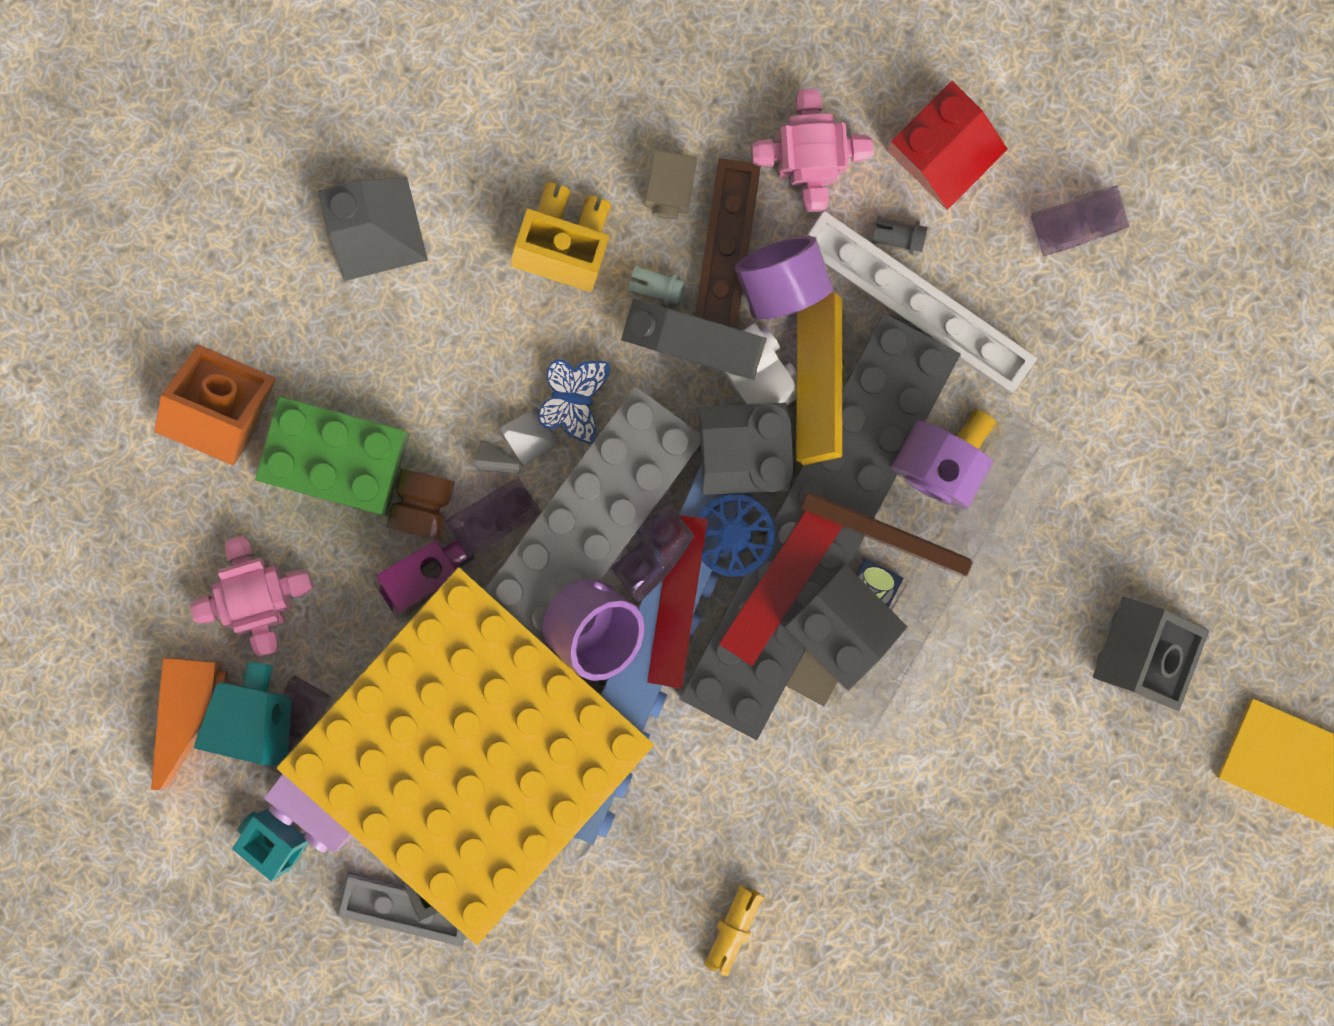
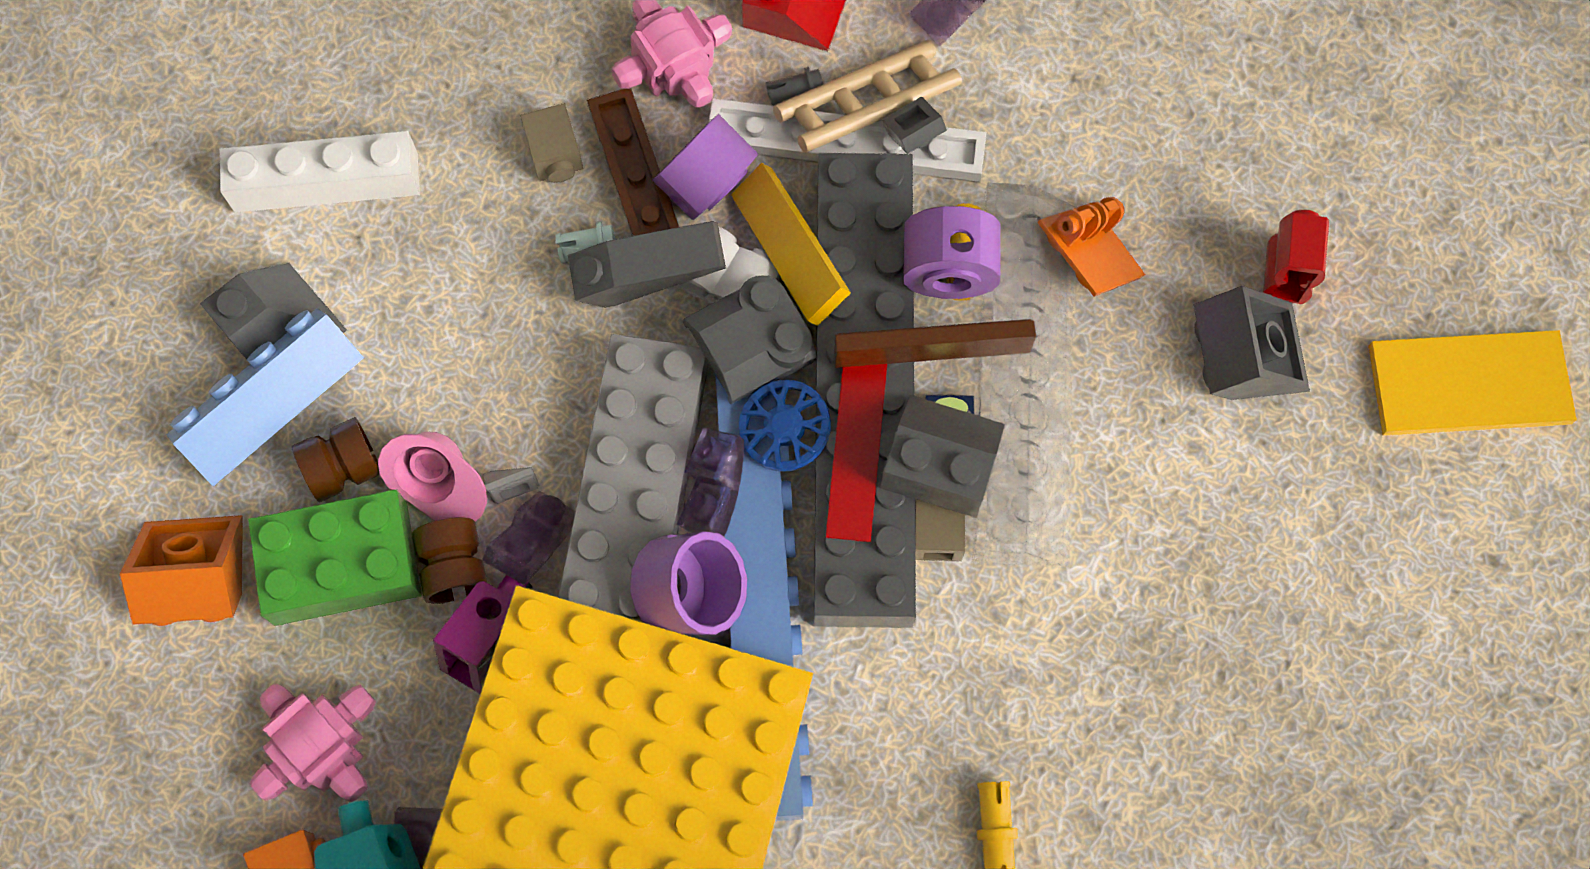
camera: 30 degrees left, 15 degrees down
(336, 292) = (264, 395): none -> light blue brick
(369, 375) = (335, 460): none -> reddish brown wheel
(439, 428) = (433, 476): none -> bright pink piece
(467, 113) = (319, 171): none -> white brick
(528, 436) = (529, 444): light grey slope -> none
(561, 248) = (471, 247): yellow brick -> none
(572, 398) = (555, 382): animal -> none
(676, 611) = (767, 531): red sticker -> none
(937, 293) = (856, 115): none -> tan bar
(977, 327) = (914, 125): none -> dark grey plate
(1069, 504) = (1091, 246): none -> orange hinge
(1228, 602) = (1297, 256): none -> red brick

